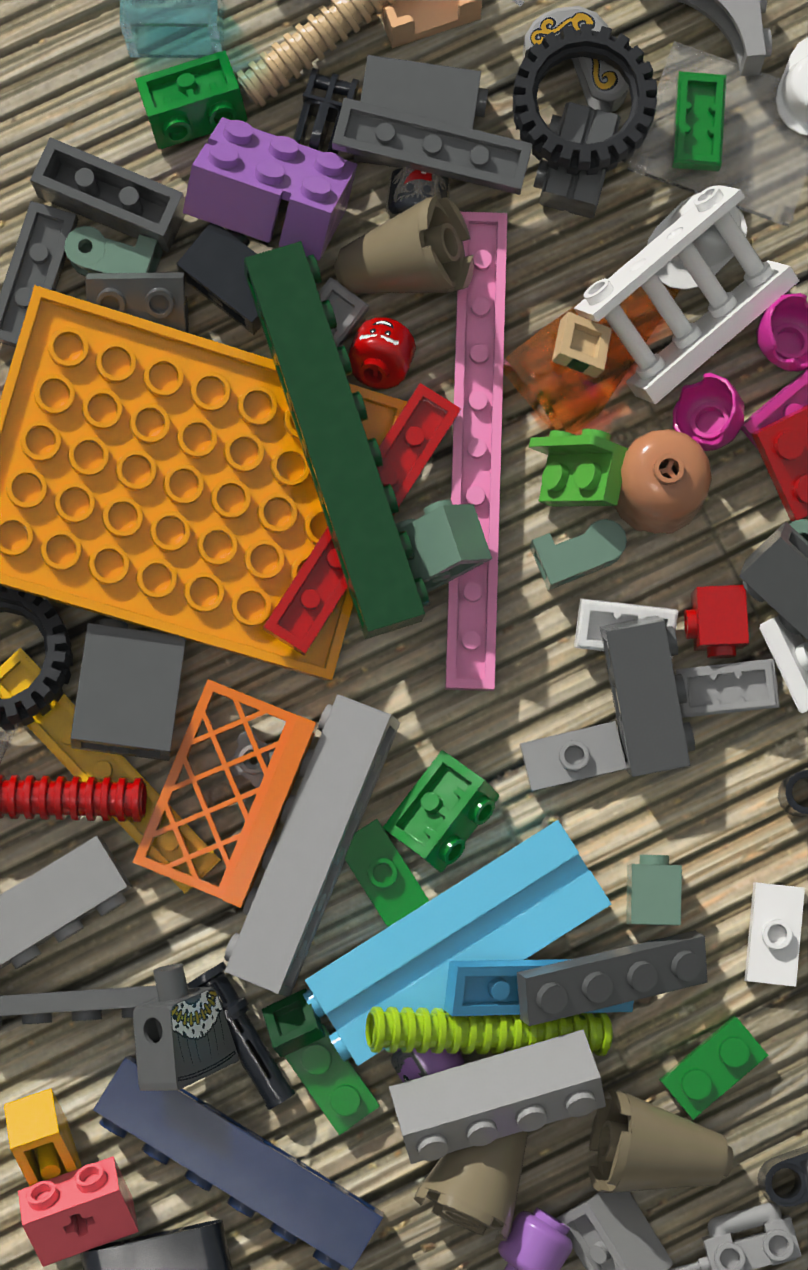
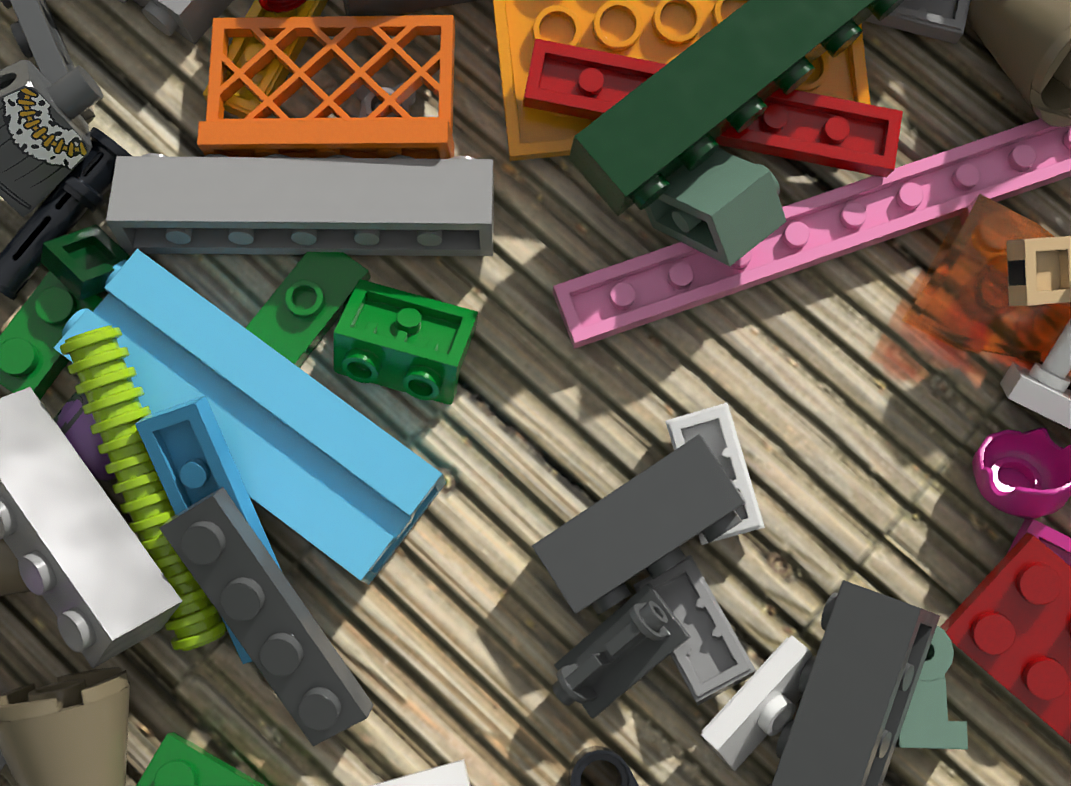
camera: 70 degrees right, 5 degrees down
(382, 353) = (915, 64): red head -> none
(573, 756) = (532, 470): light grey plate -> none
(578, 556) = (780, 385): sand green leg -> none
(580, 468) = (890, 340): bright green bracket -> none
(654, 892) = (399, 632): sand green brick -> none
(658, 502) = (897, 448): nougat cylinder -> none
(718, 620) = (774, 583): red brick -> none
(725, 746) = (619, 652): none -> dark grey hinge

